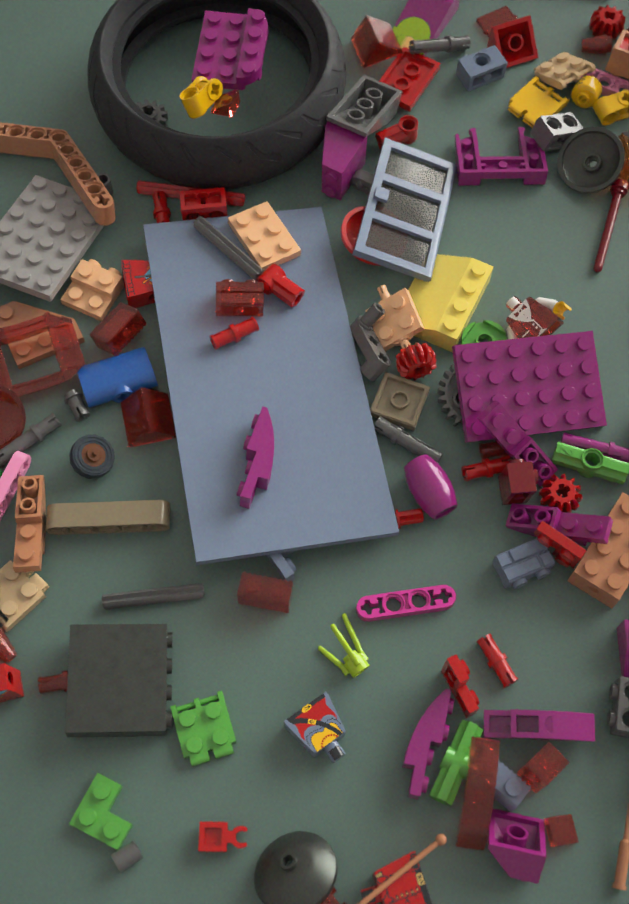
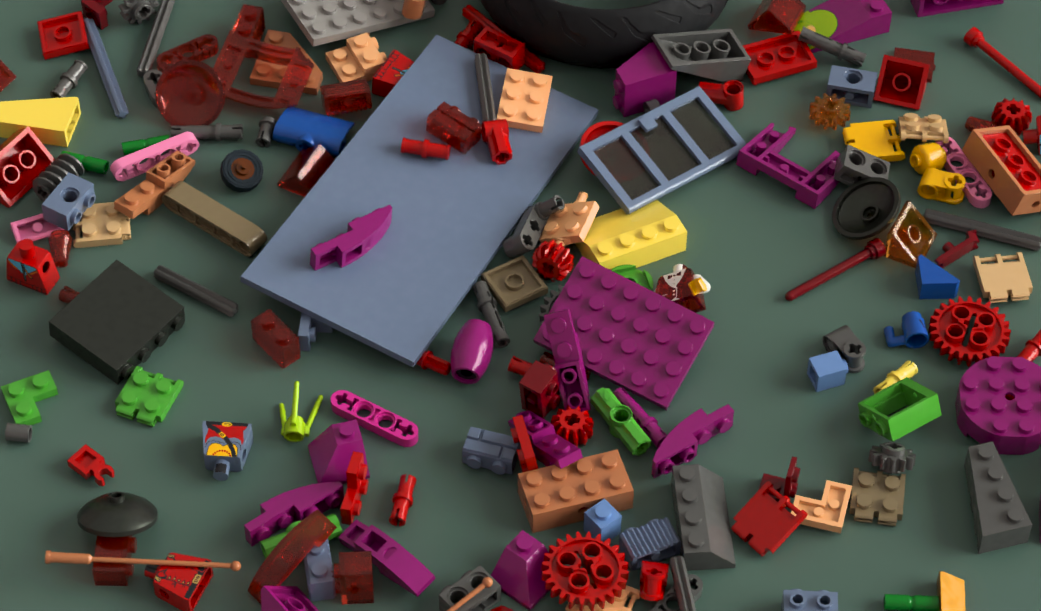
camera: 40 degrees right, 15 degrees down
(413, 661) = (333, 451): none -> magenta slope
(486, 98) = (829, 111): none -> clear orange gear

